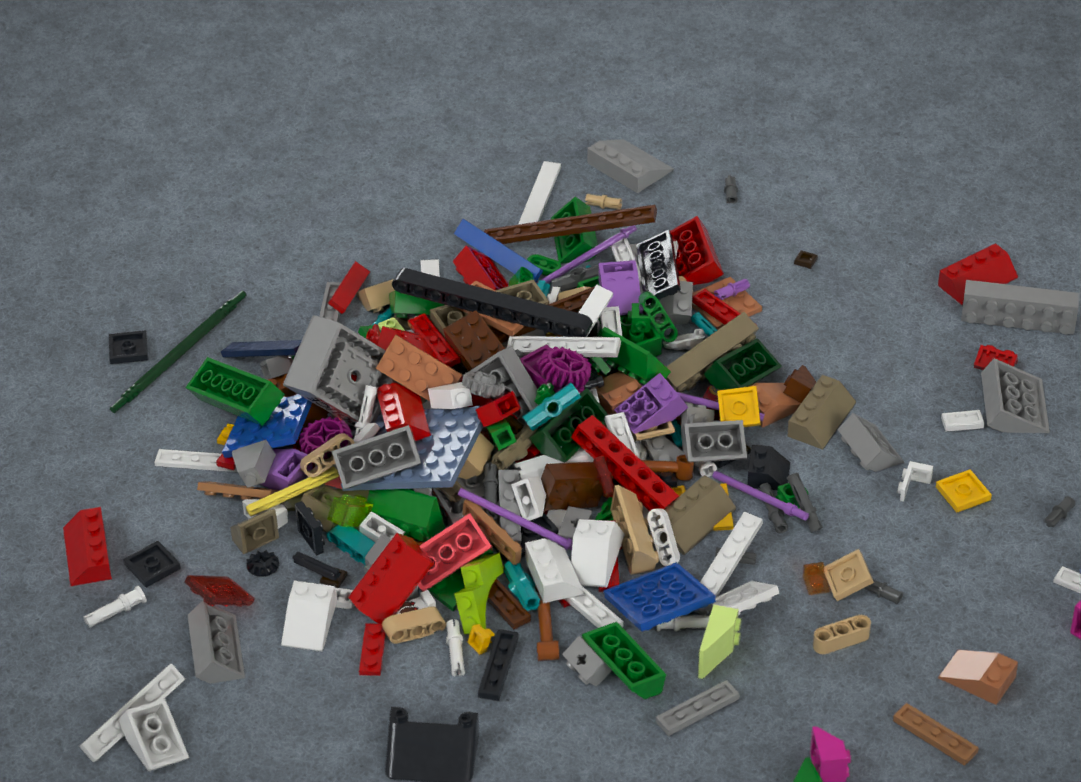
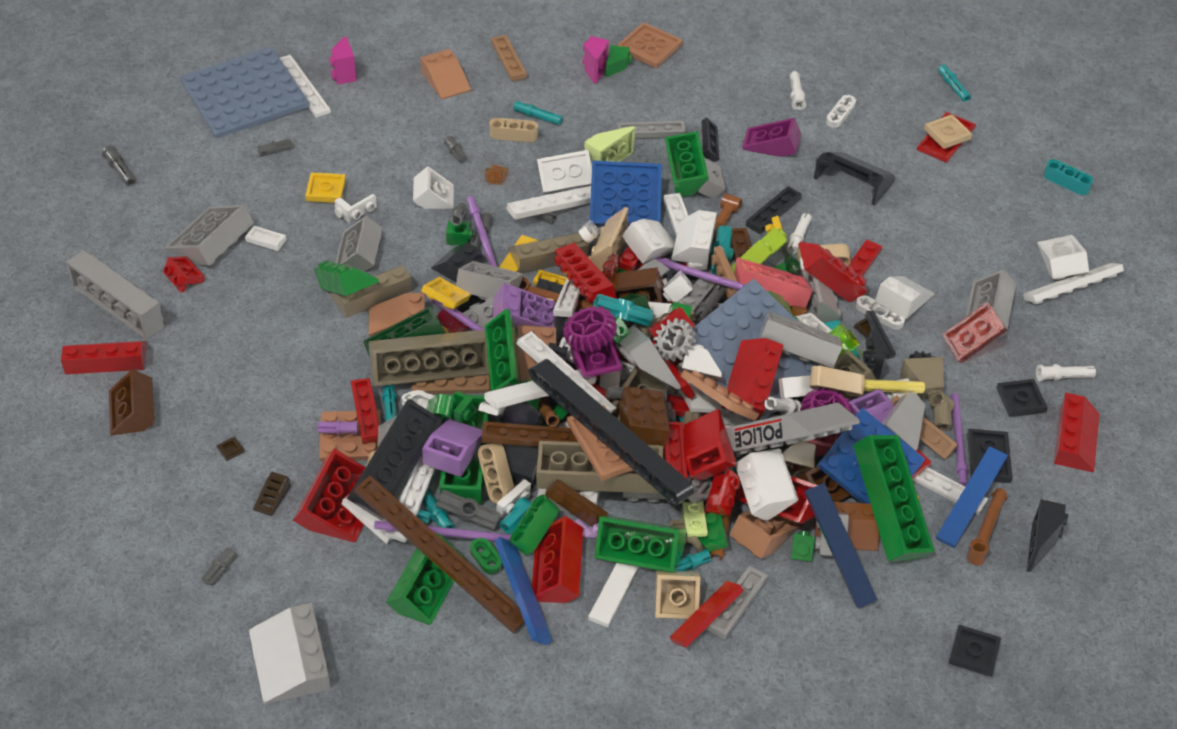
camera: 155 degrees left, 5 degrees up
(92, 438) = (1045, 530): none -> black slope
(149, 416) = (979, 547): none -> dark orange piece
(166, 498) = (979, 442): none -> black plate
(168, 451) = (971, 497): none -> blue tile
(178, 351) = (916, 625): dark green axle -> none
(188, 480) = (962, 466): none -> medium lavender bar
(224, 515) = (942, 409): none -> dark tan piece
(440, 597) = (792, 264): none -> dark green axle
(540, 192) = (419, 660): white tile -> none
(551, 754) = (773, 138): none -> magenta slope
(603, 201) = (361, 612): tan pin -> none
(622, 721) = (710, 140): none -> black plate
(741, 244) = (277, 482): none -> dark brown slope
(799, 384) = (365, 314): reddish brown slope -> none
(837, 673) = (531, 110): none -> teal pin
(840, 385) = (342, 278): none -> green slope
(848, 575) = (473, 160): tan plate -> none
(856, 528) = (433, 190): none -> white slope
(909, 251) = (131, 404): none -> reddish brown slope

